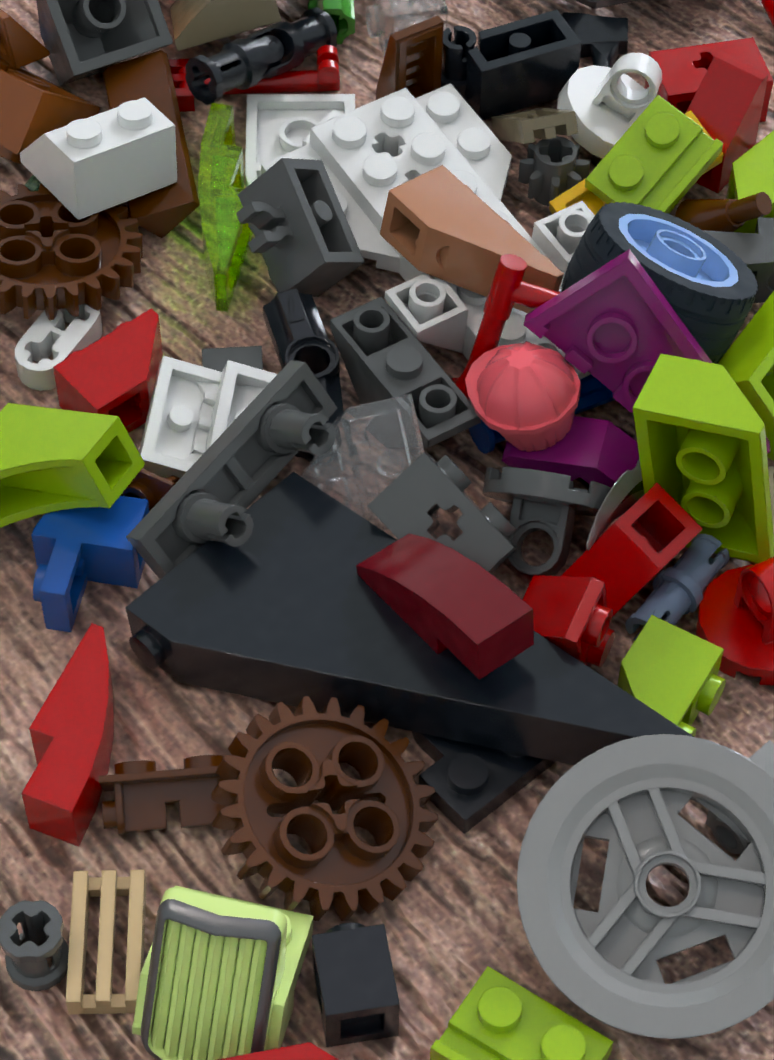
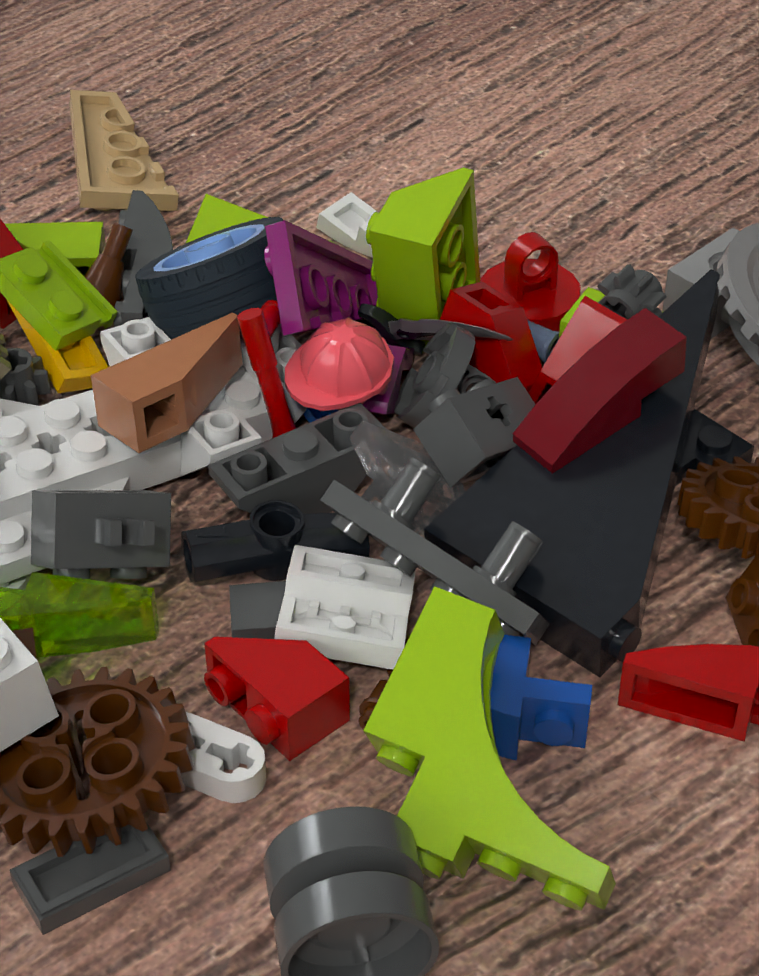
camera: 90 degrees left, 10 degrees down
(648, 659) = (631, 292): none -> dark grey gear

